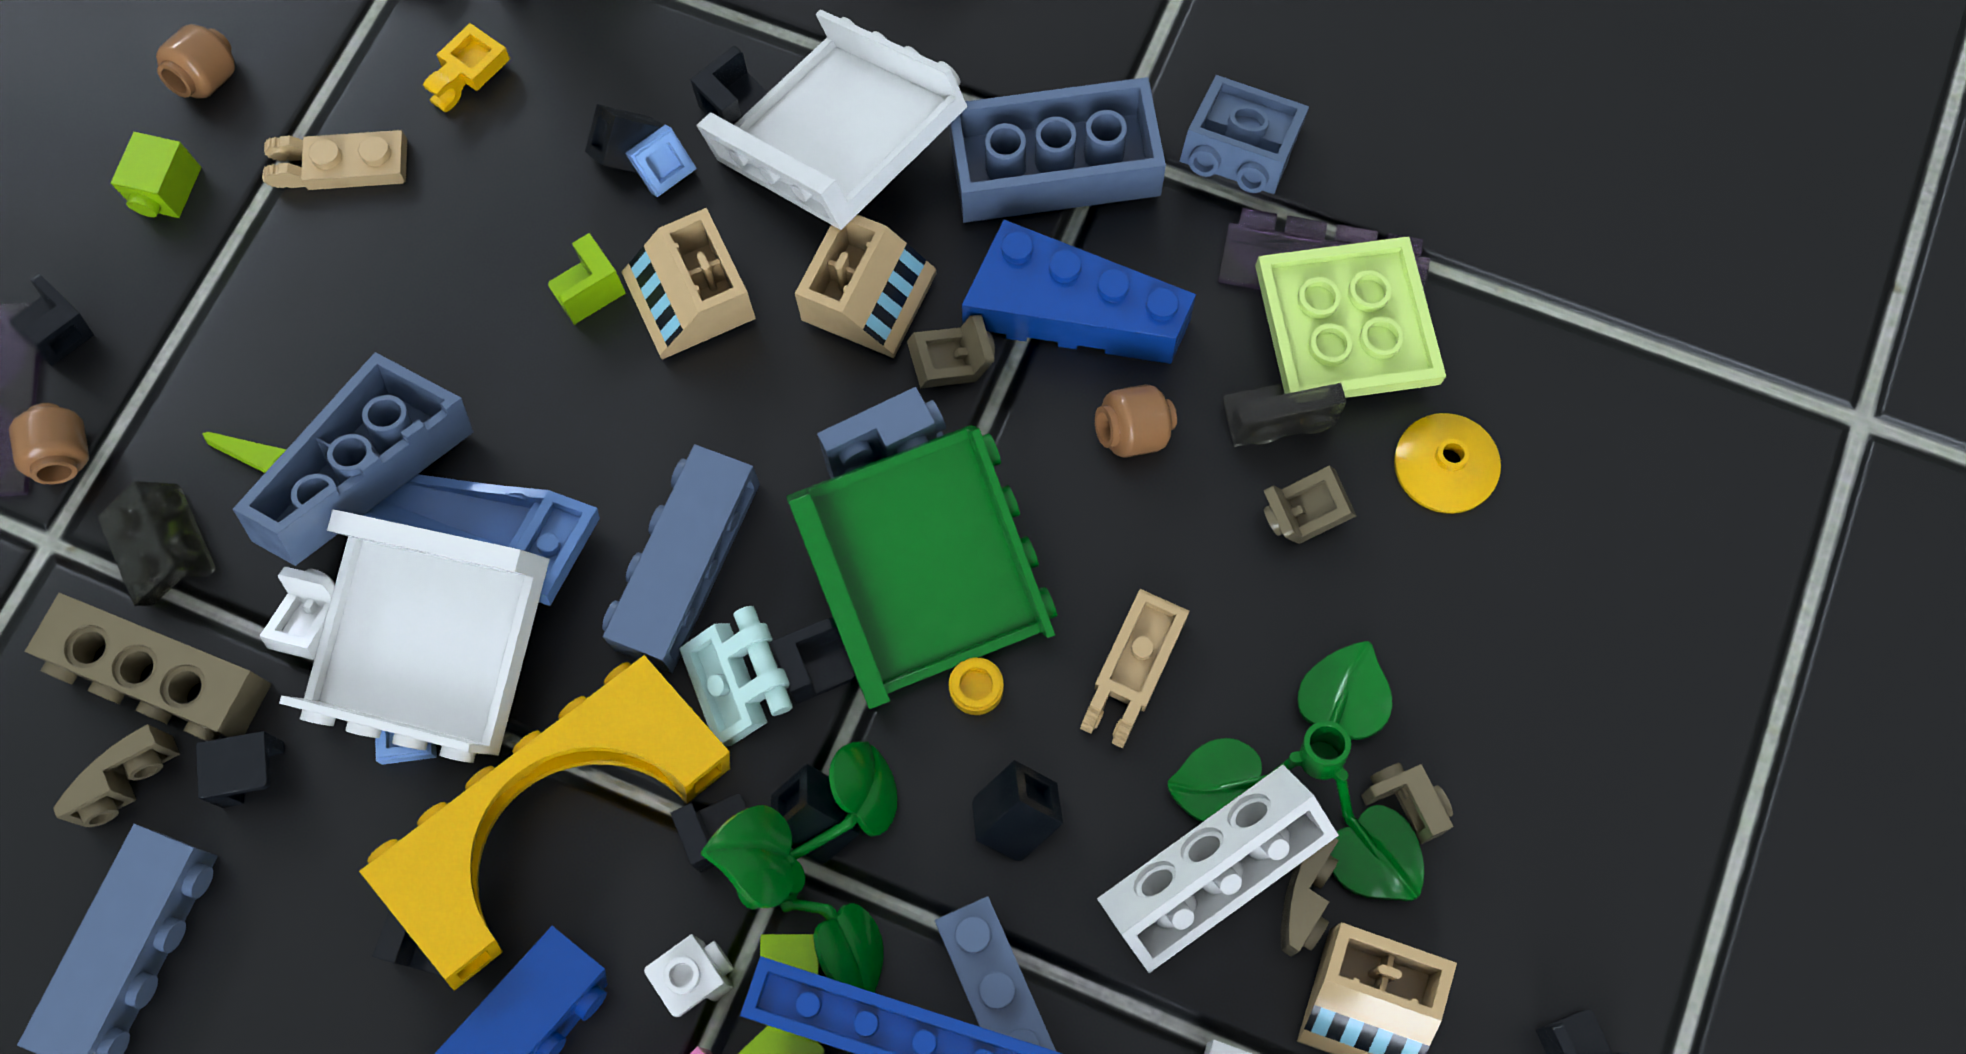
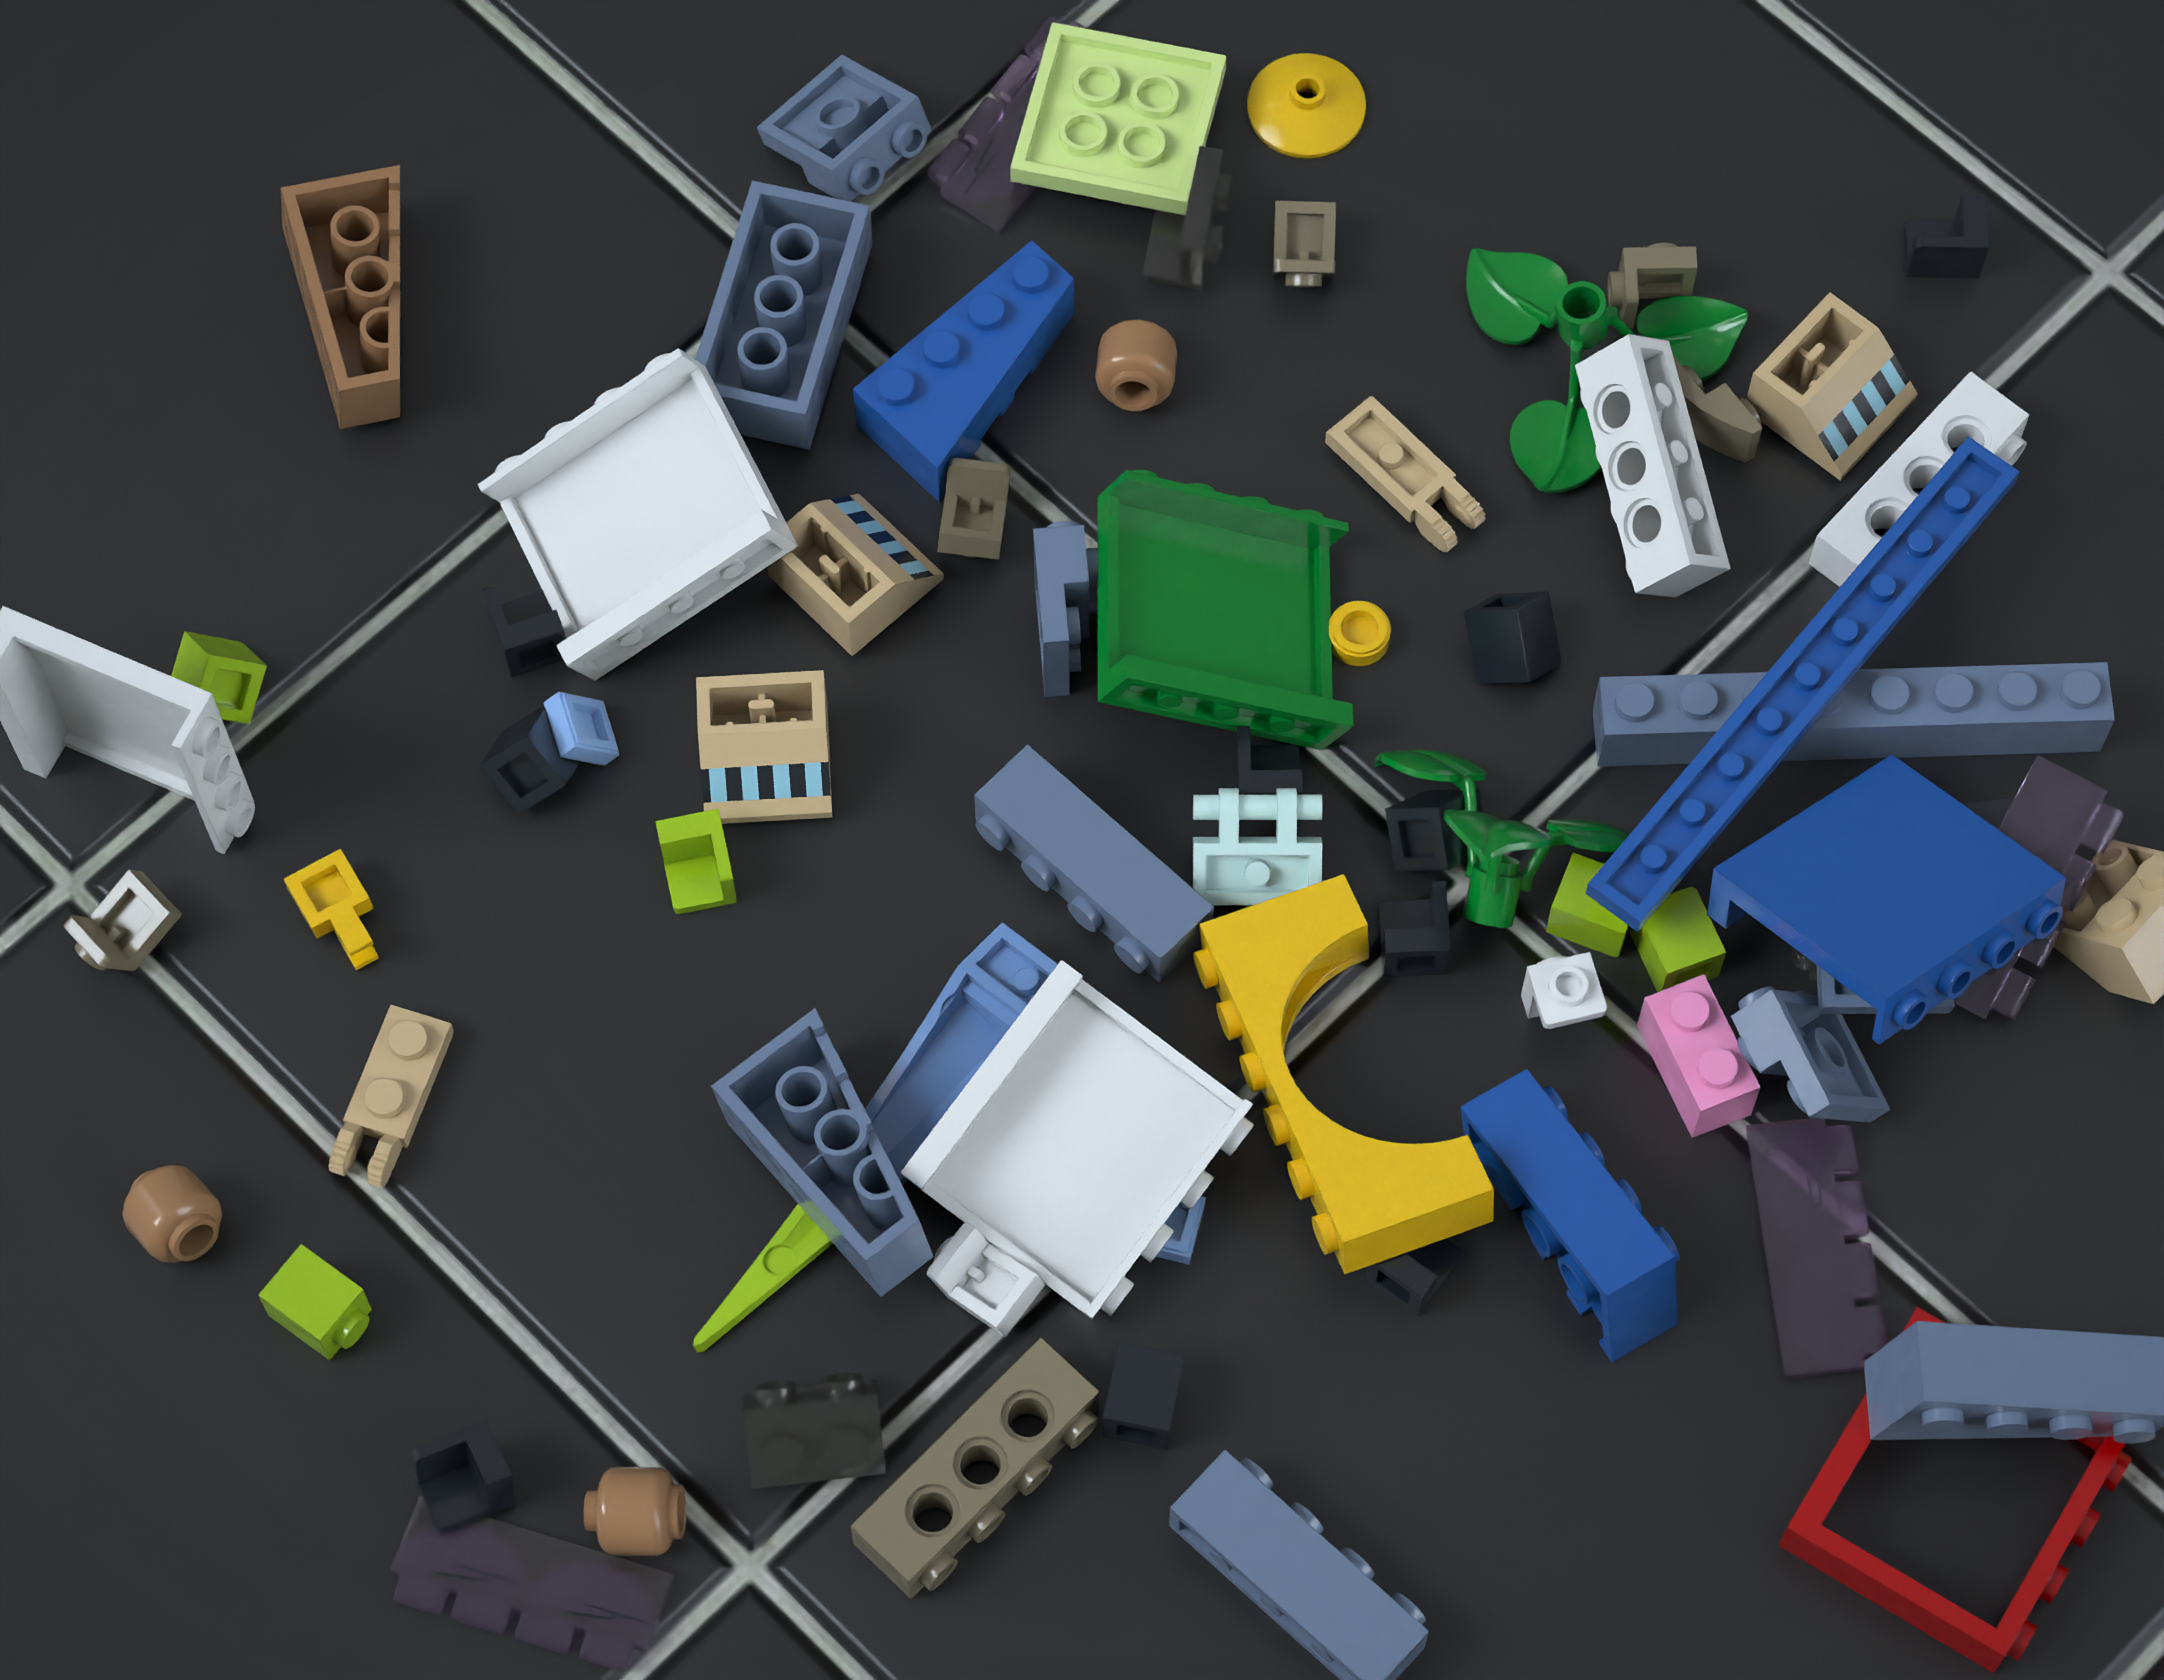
camera: 70 degrees left, 5 degrees down
(105, 783) = (1099, 1548): dark tan slope -> none

